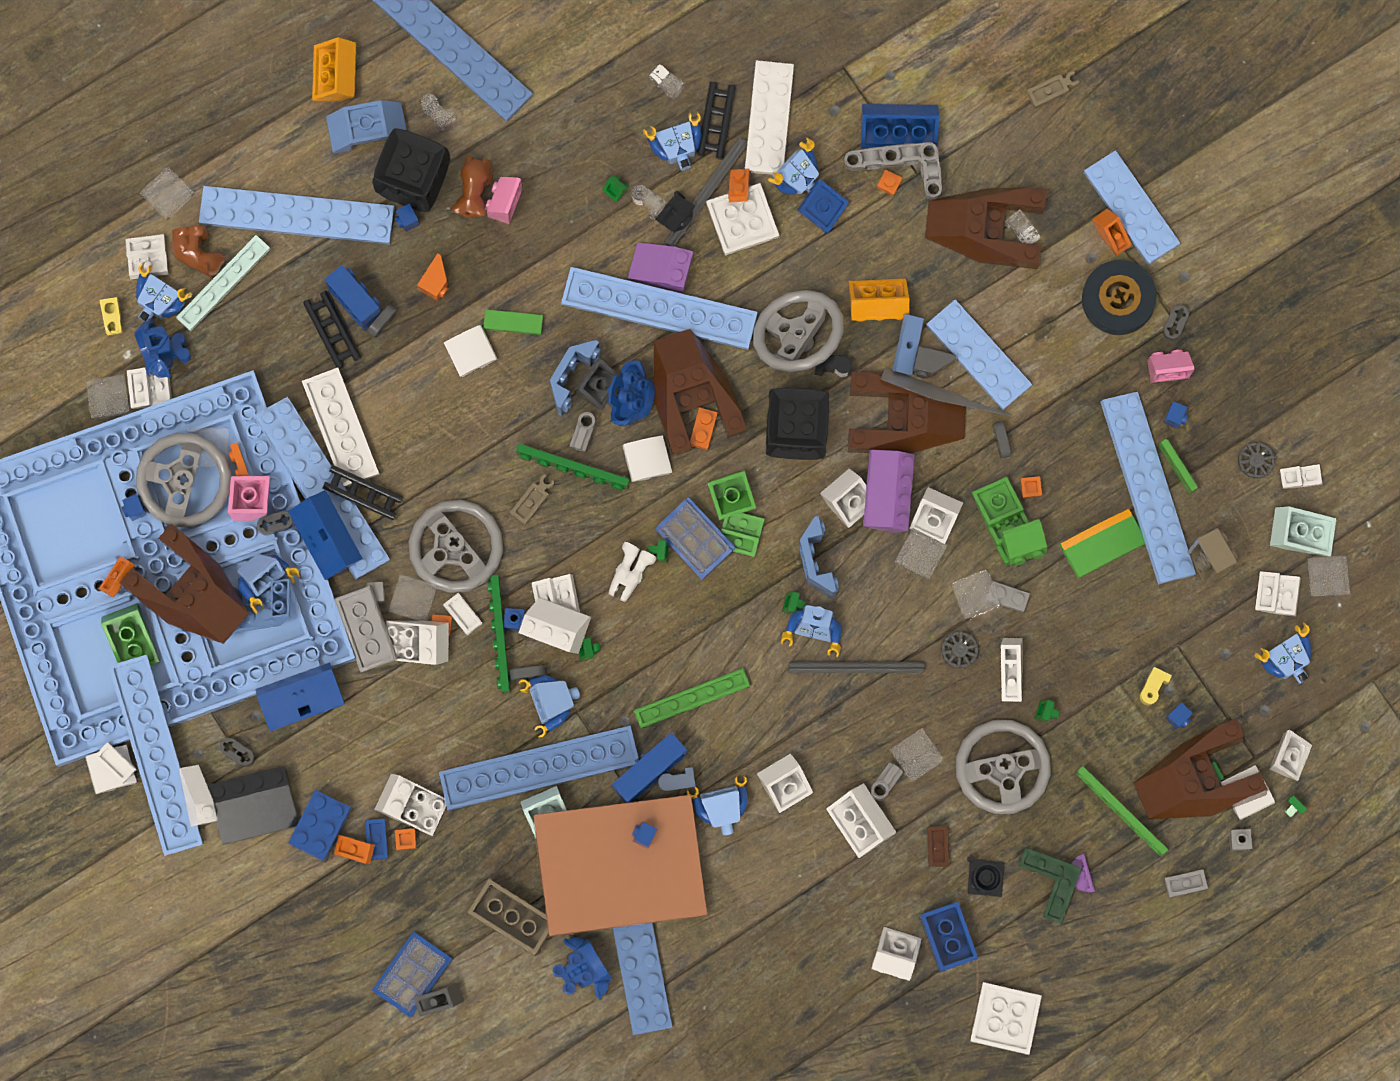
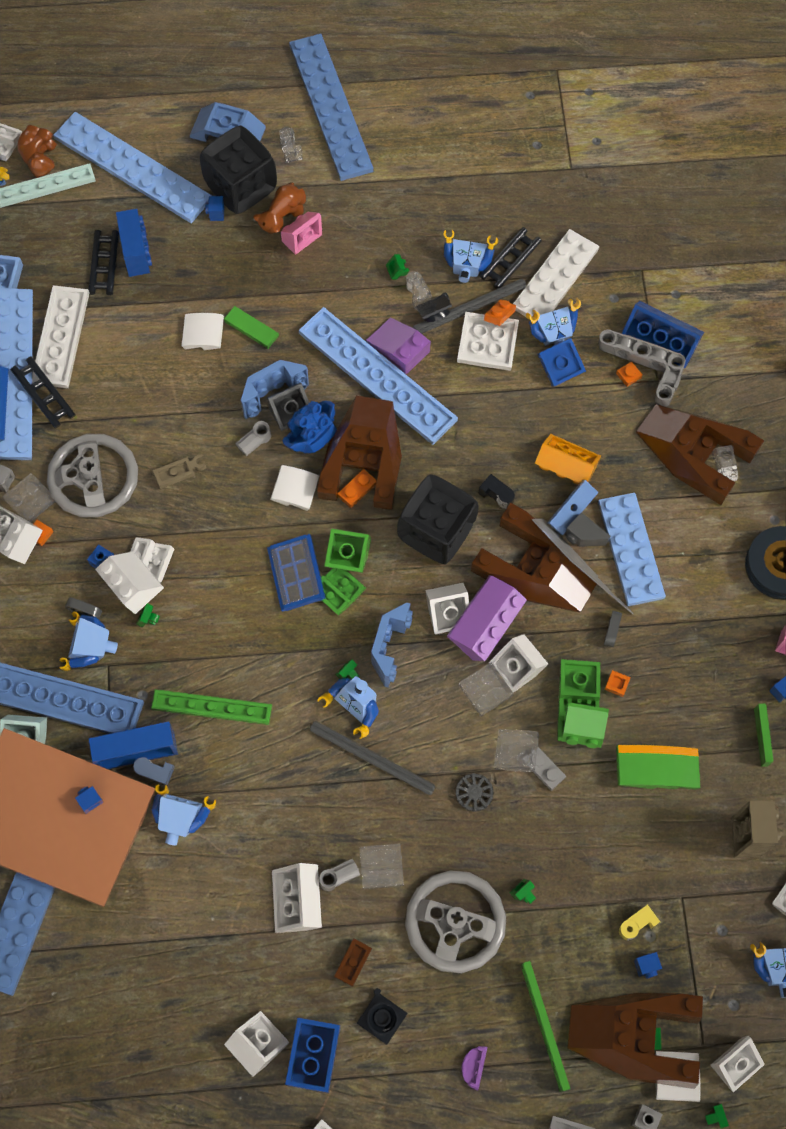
camera: 30 degrees right, 10 degrees down
(167, 193) = (44, 104): clear plate -> none
(334, 70) = (229, 79): light orange slope -> none
(382, 321) = (147, 273): dark grey beam -> none
(434, 280) = (208, 263): orange slope -> none
(462, 614) = (63, 533): white tile -> none
(498, 625) = (78, 570): green plate -> none
(581, 471) = (232, 466): green plate -> none
(625, 576) = (217, 572): white piece -> none
(660, 551) = (259, 567): green tile -> none
(666, 81) = (486, 210): clear leg -> none
(785, 783) = (247, 826): white slope -> none
(800, 333) = (485, 450): light grey piece -> none
(1011, 668) = (512, 835): white slope -> none
(1065, 876) = (457, 1058): dark green plate -> none
(1148, 488) = (725, 741): light blue plate -> none

